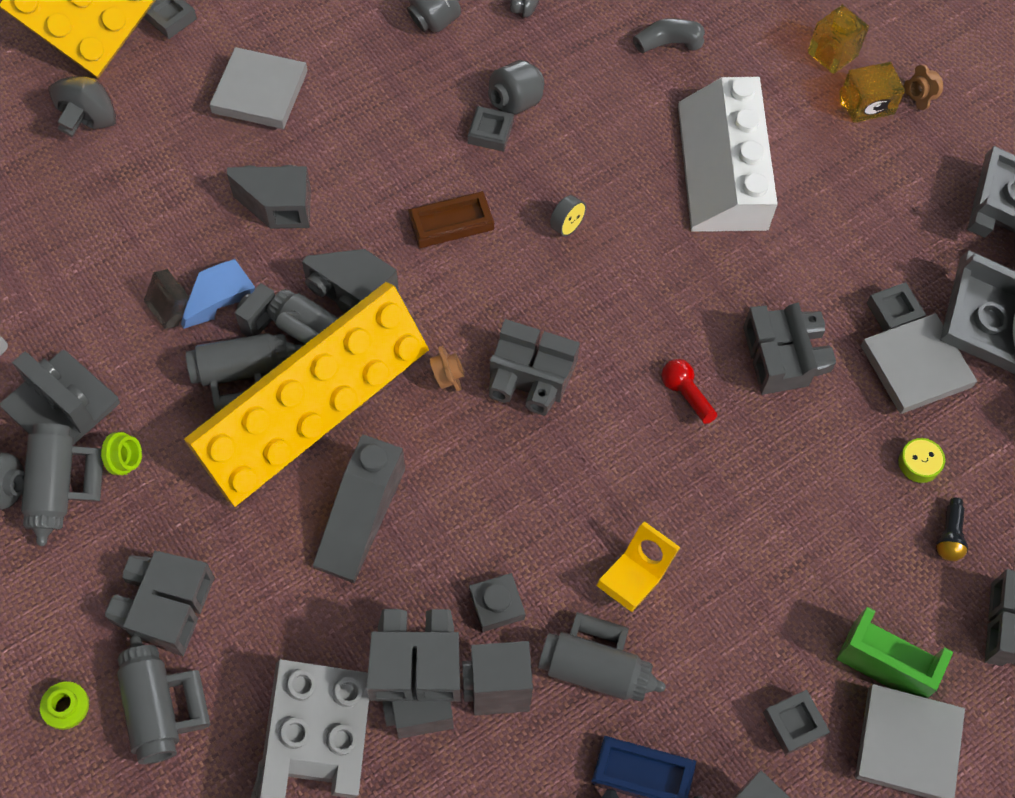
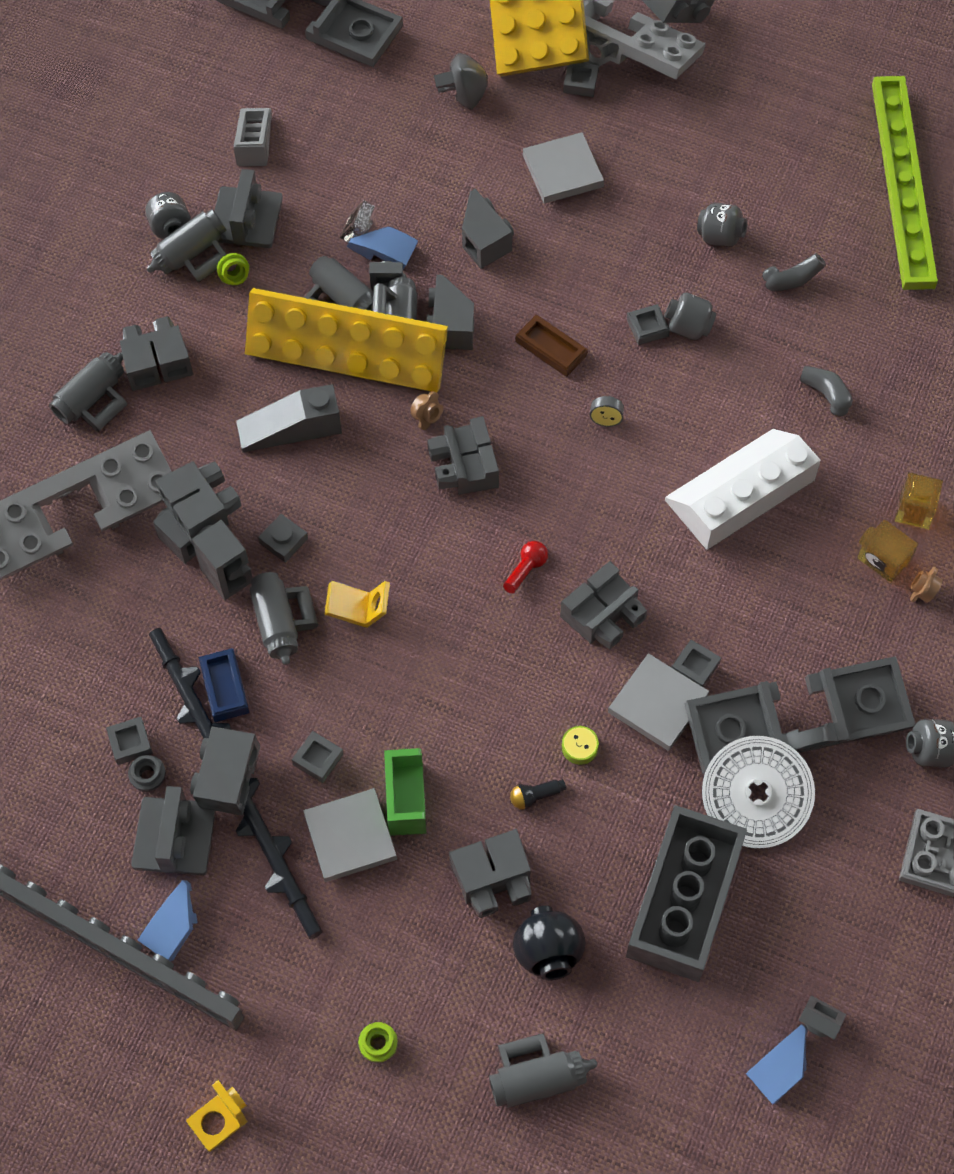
camera: 60 degrees right, 0 degrees up
(73, 714) = (63, 355): lime plate -> none

